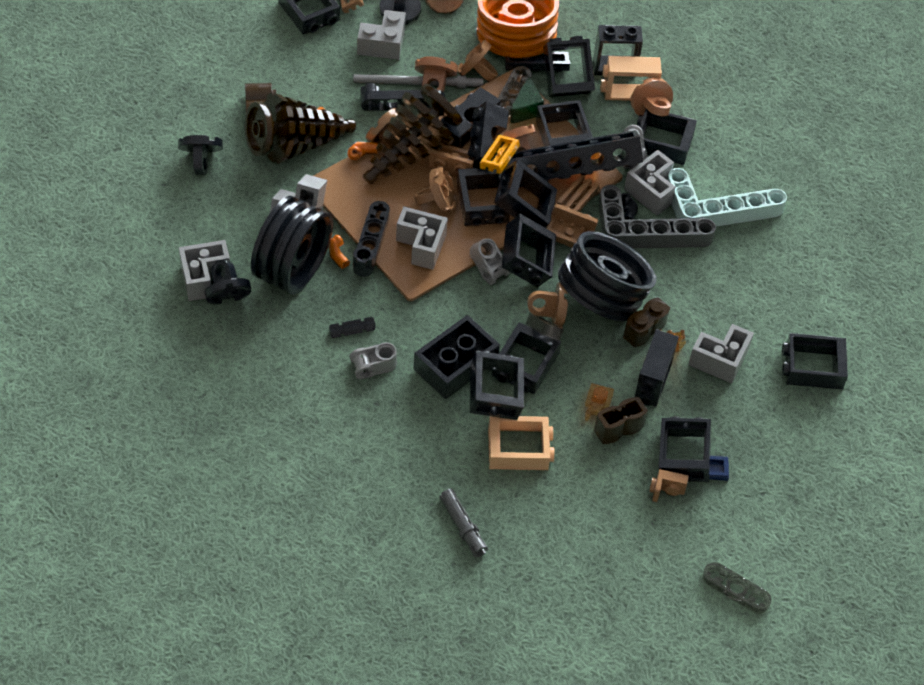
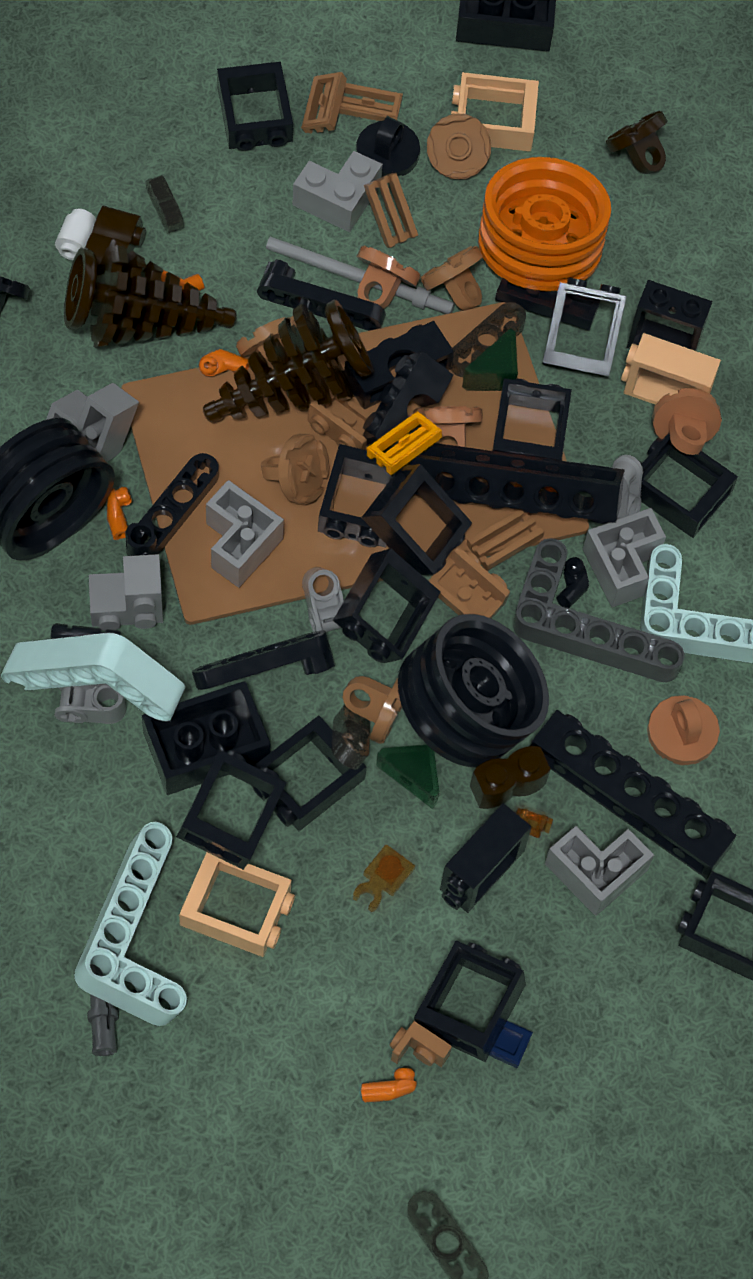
camera: 20 degrees right, 10 degrees up
(234, 105) = (75, 232): none -> white brick
(280, 73) = (164, 204): none -> clear smoke beam
(370, 294) = (127, 596): none -> light grey brick
(370, 327) = (96, 660): none -> light aqua beam
(423, 35) = (402, 206): none -> medium nougat tile
(458, 497) = (122, 925): none -> light aqua beam
(493, 289) = (310, 648): none -> black beam
(588, 337) = (413, 769): none -> clear green slope
(620, 420) = (405, 921): dark brown brick -> none
(658, 517) = (389, 1090): none -> orange arm
(723, 309) = (639, 812): none -> black brick
(731, 267) = (683, 730): none -> nougat tile

